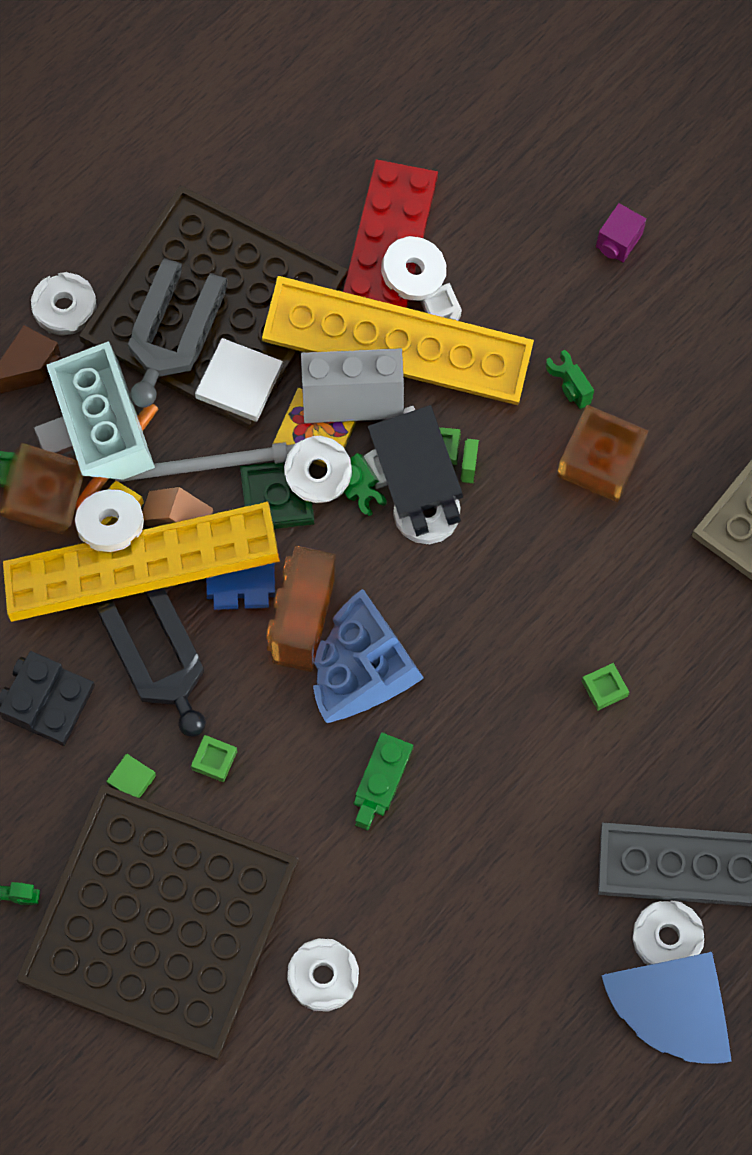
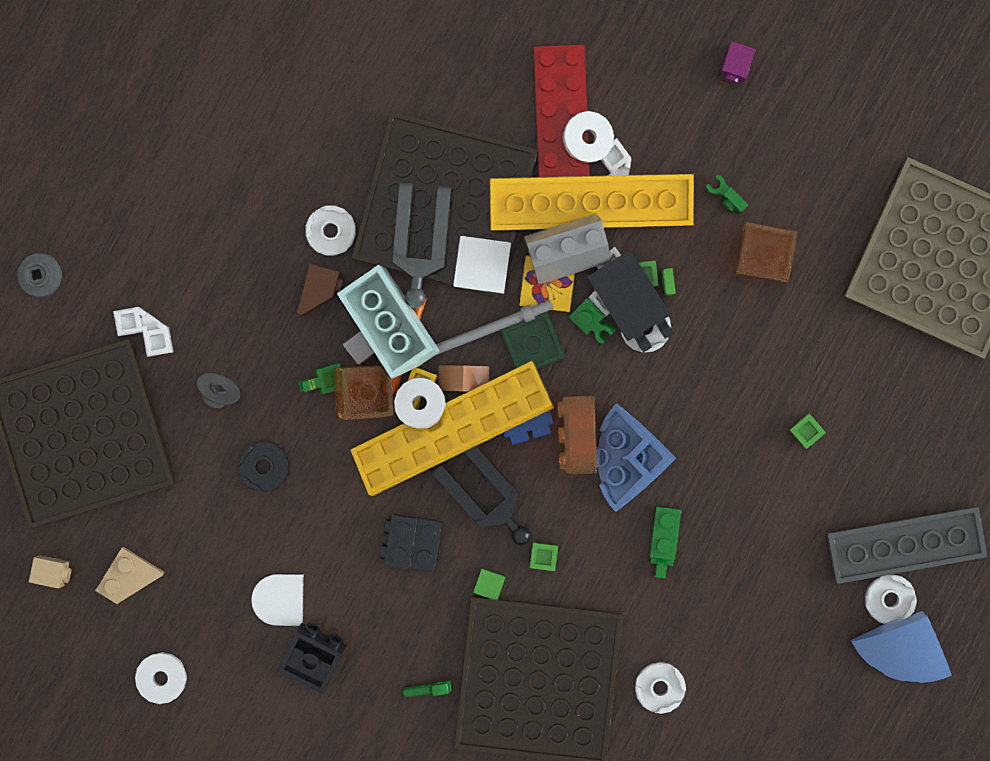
camera: 10 degrees left, 20 degrees up
(337, 475) = (555, 308): white tile -> none

